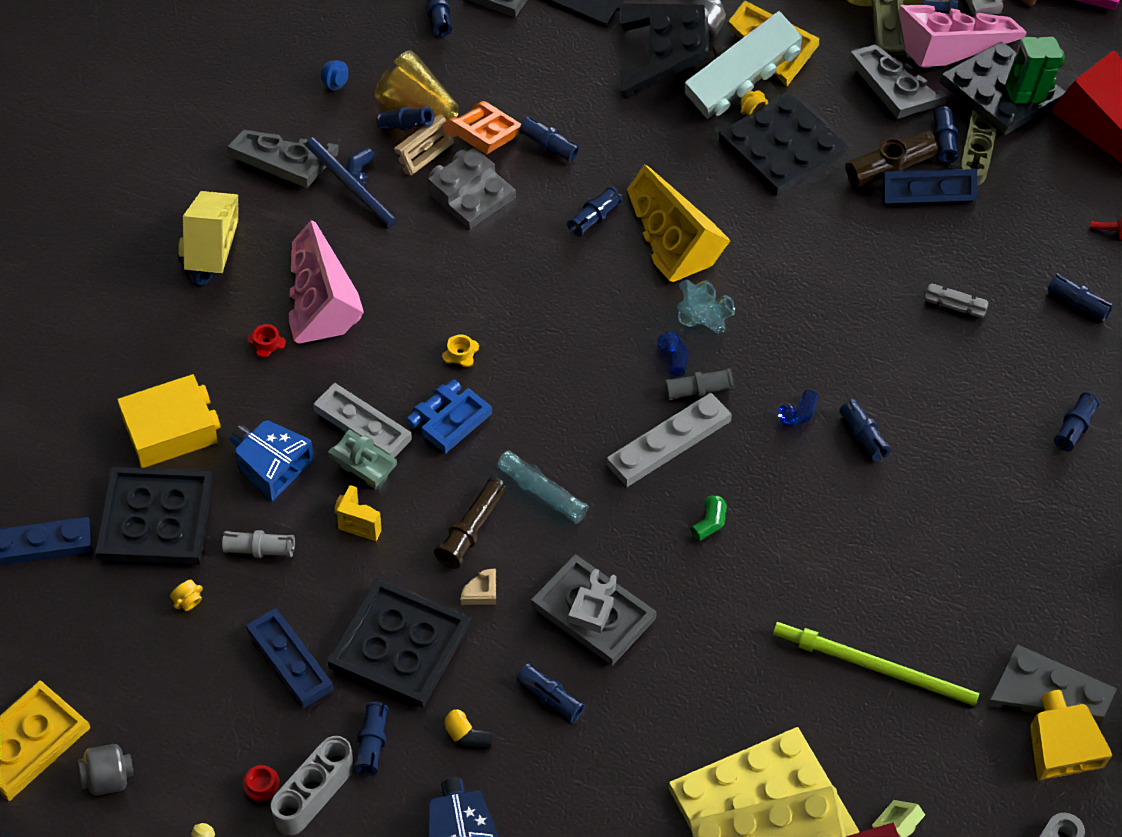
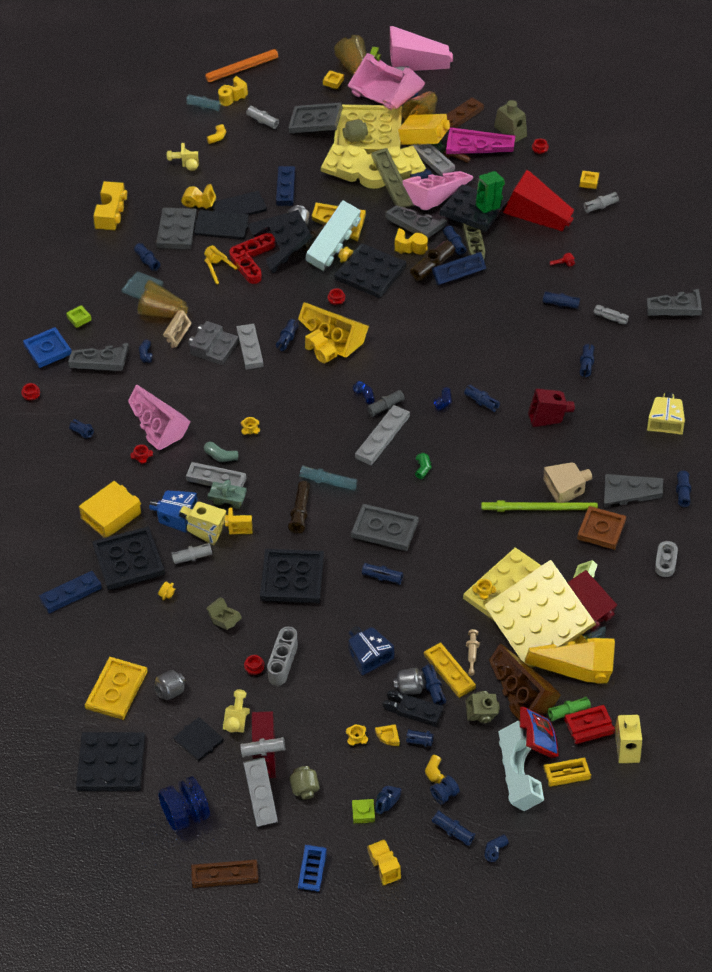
camera: 20 degrees left, 5 degrees down
(150, 177) = (30, 391): none -> red plate
(208, 231) = (84, 407): light yellow wedge -> none
(211, 111) = (47, 347): none -> blue plate
(253, 672) = (223, 615): none -> olive bracket
(284, 75) = (78, 316): none -> lime plate
(289, 657) = (239, 601): dark blue plate -> none
(298, 496) = (204, 521): none -> light yellow torso
(334, 74) = (107, 307): blue plate -> none
(350, 182) = (145, 359): dark blue bar -> none
(371, 738) = (301, 624): dark blue pin -> none
(387, 384) = (219, 454): none -> sand green arm
(405, 118) = (160, 317): dark blue pin -> none
(408, 41) = (136, 284): none -> clear light blue piece
(453, 422) = (265, 462): blue plate -> none
(464, 734) = (347, 607): arm -> none
(480, 589) = (320, 537): tan tile -> none
(489, 133) = (210, 312): orange plate -> none
(527, 212) = (250, 346): none -> light grey plate
(542, 41) = (213, 255): none -> yellow plant
(549, 139) = (244, 305): dark blue pin -> none
(591, 57) = (242, 254): none -> red beam
(593, 605) = (385, 522): light grey plate -> none
(639, 253) = (323, 349): none -> yellow leg
(702, 307) = (370, 363): clear light blue hips -> none
(704, 779) = (484, 584): none -> yellow plate
(705, 171) = (336, 296): none -> red plate
(878, 119) = (416, 243): none -> yellow leg
(941, 635) = (566, 481): none -> tan torso
(956, 300) = (497, 321): light grey axle -> none
(966, 744) = (601, 527): none -> dark orange plate
(970, 487) = (548, 407): none -> dark red torso
(1066, 739) = (649, 508): yellow torso -> none

